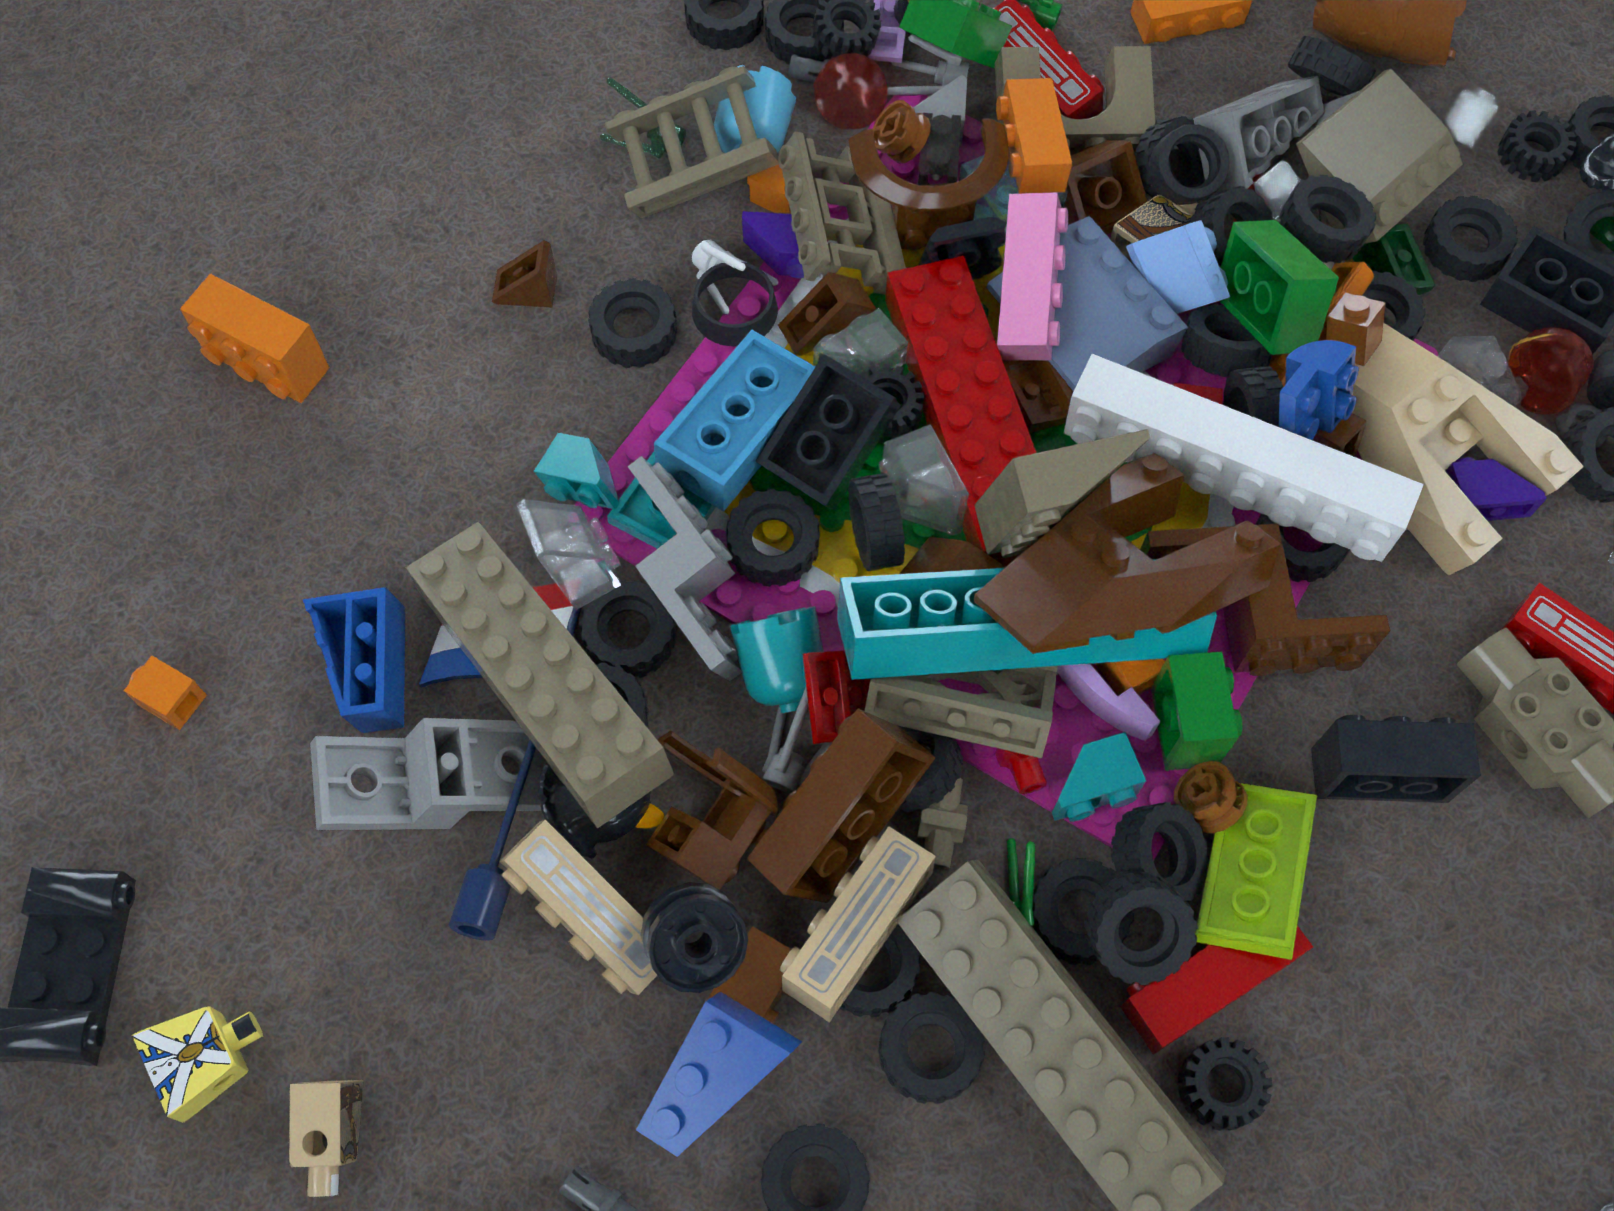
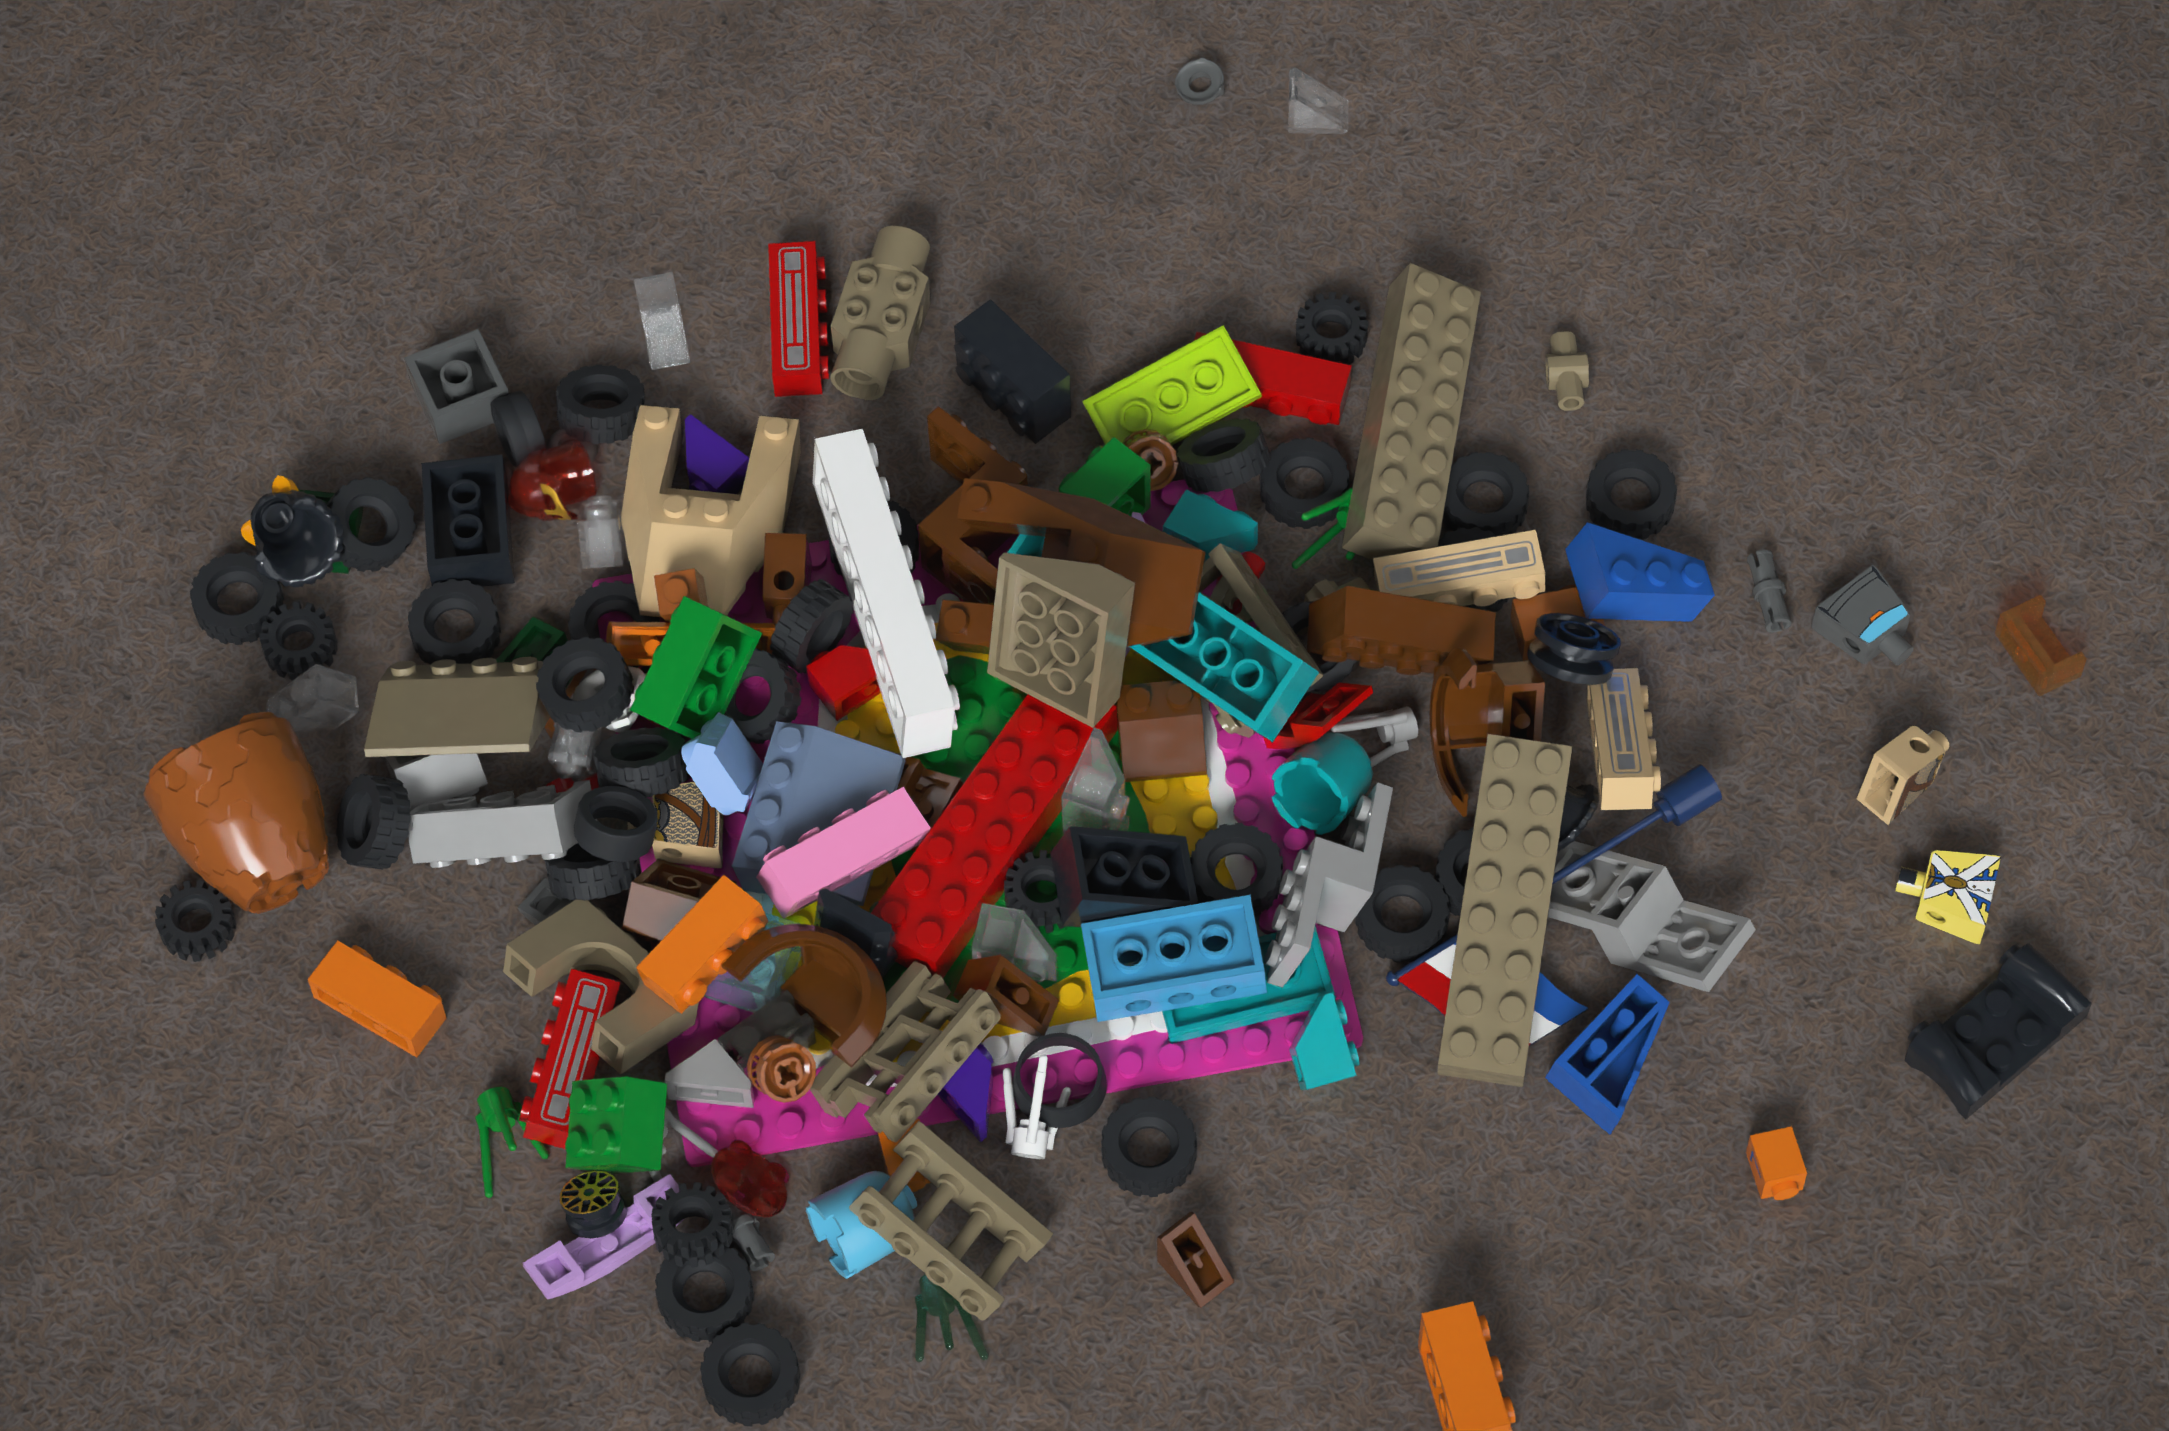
camera: 130 degrees left, 5 degrees down
(571, 549) = (1391, 975): clear slope -> none
(876, 521) = (1163, 793): black tyre -> none
(1165, 953) = (1293, 419): black tyre -> none
(1318, 387) = (786, 566): blue brick -> none

